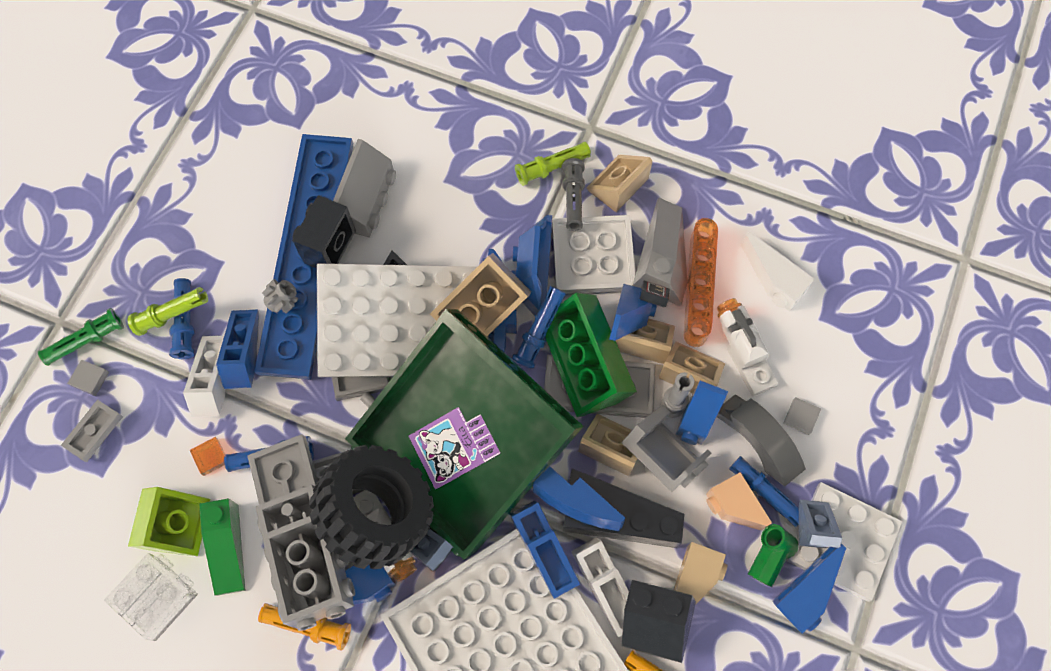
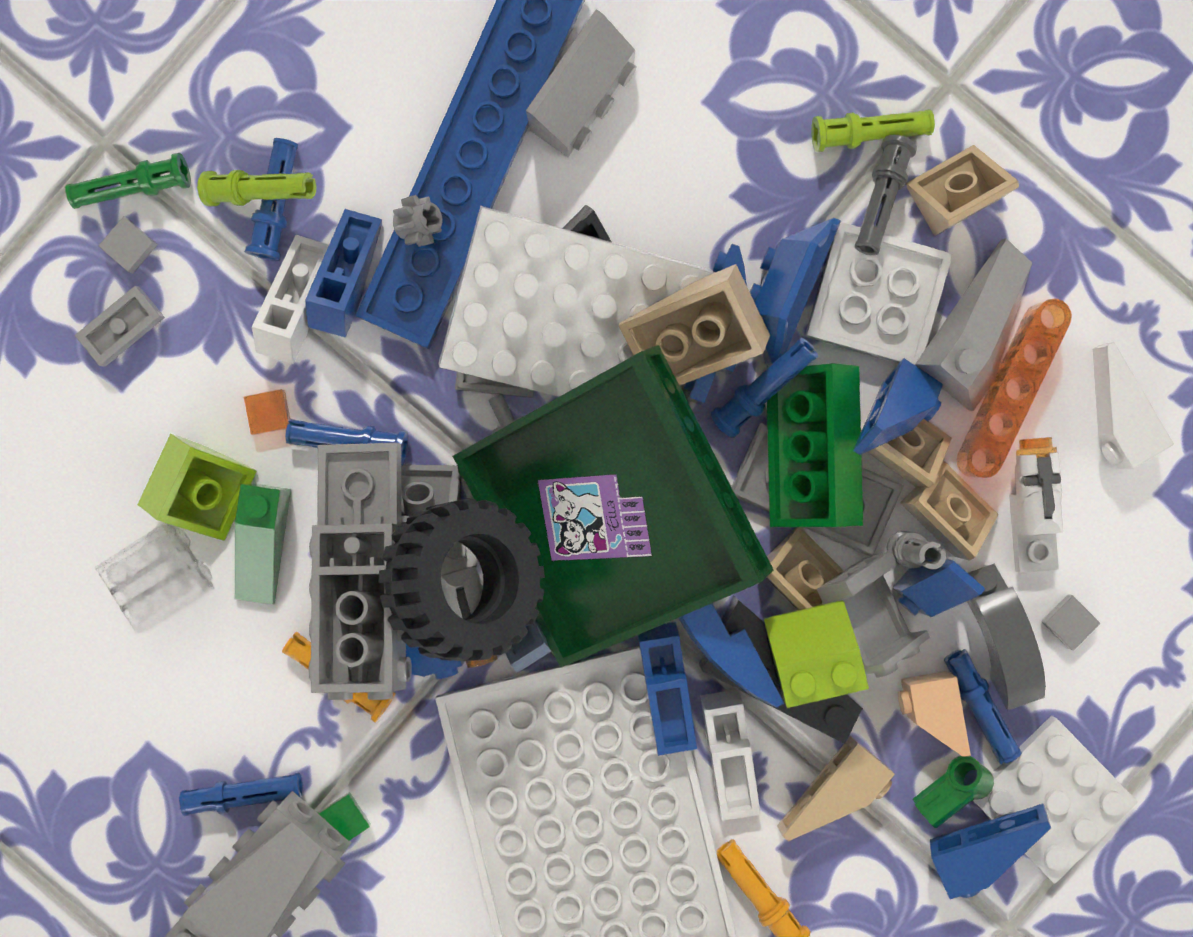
camera: 15 degrees right, 20 degrees up
(324, 232) = (504, 148): black brick -> none
(635, 480) = (815, 654): none -> lime slope
(654, 294) = (941, 396): black tile -> none
(657, 621) = (777, 829): black slope -> none
(818, 525) = (1028, 780): sand blue slope -> none

